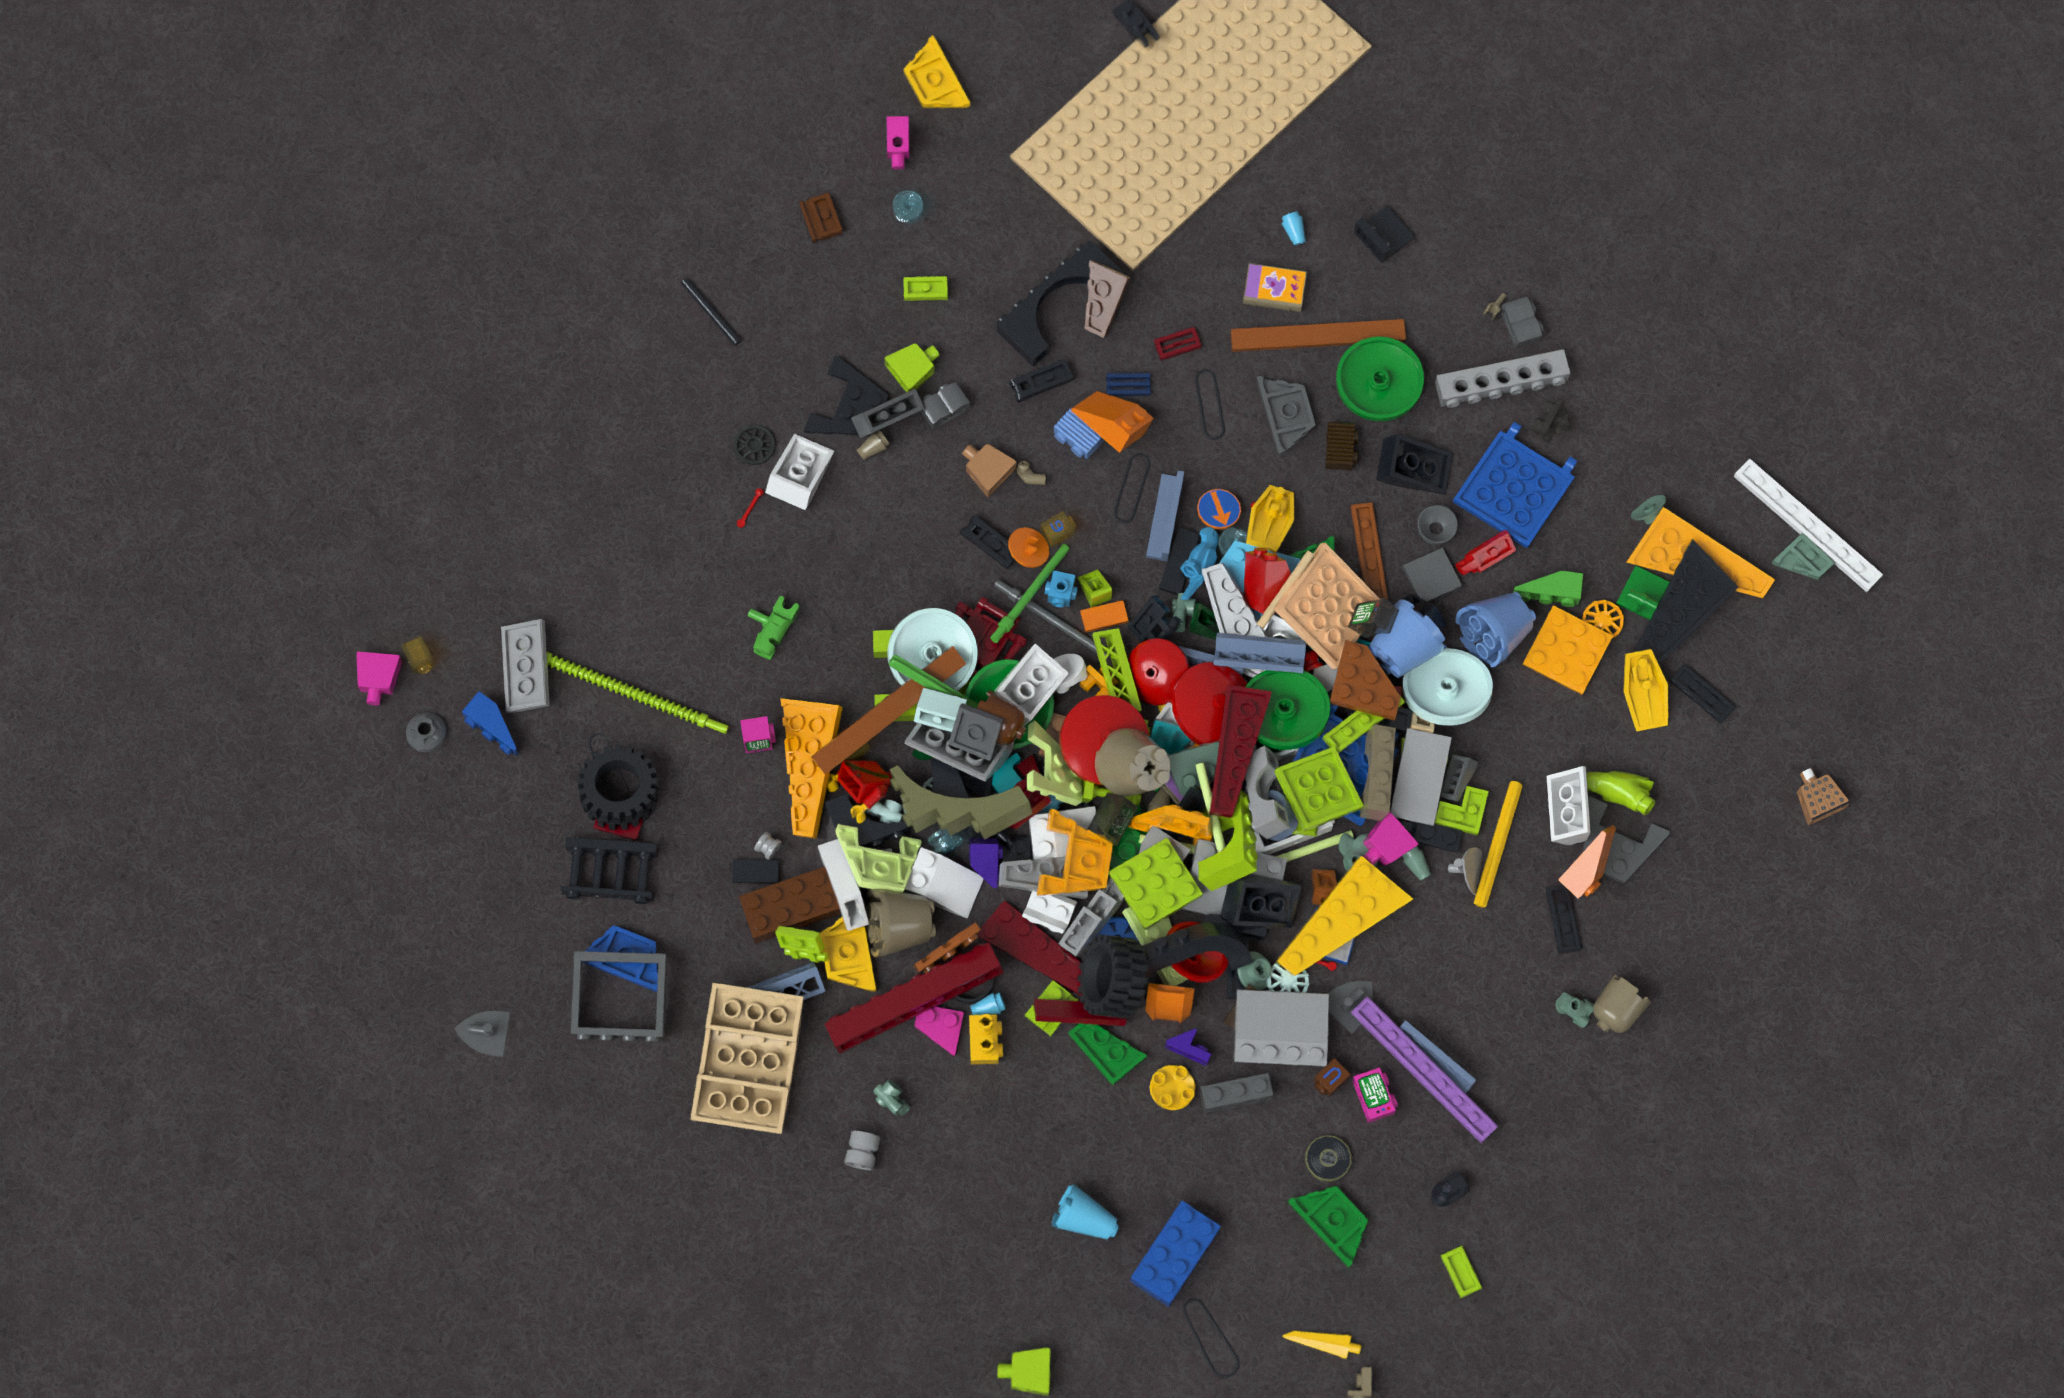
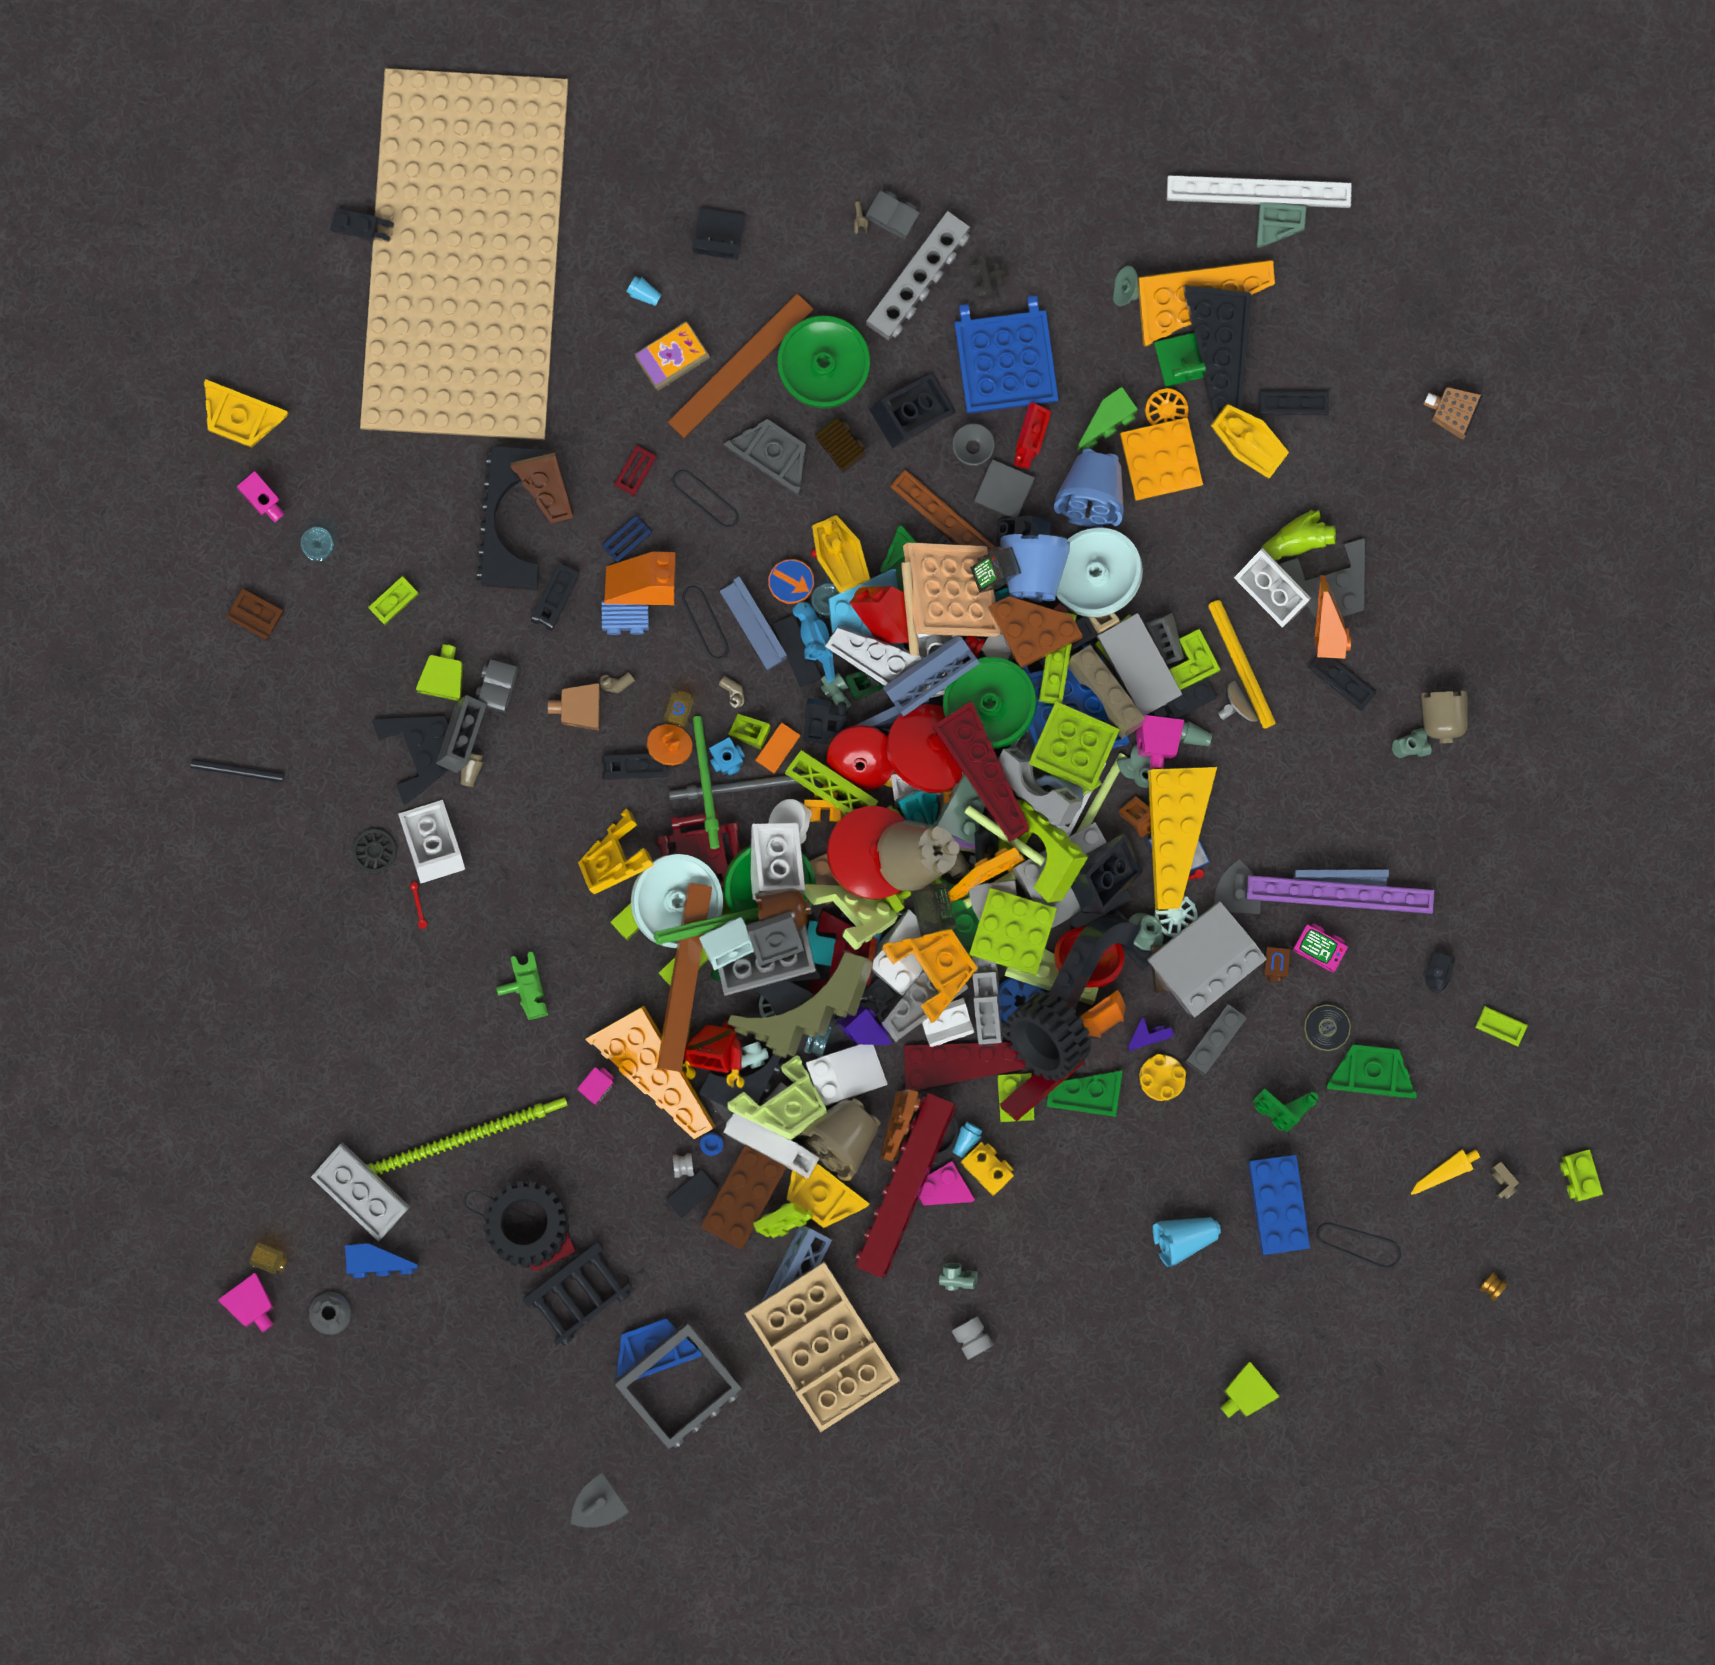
camera: 45 degrees left, 10 degrees up
(802, 849) = (711, 1143): none -> blue plate
(910, 587) = (605, 861): none -> yellow wing
(1109, 552) = (735, 691): none -> dark tan arm
(1239, 1192) = (1287, 1115): none -> green plate

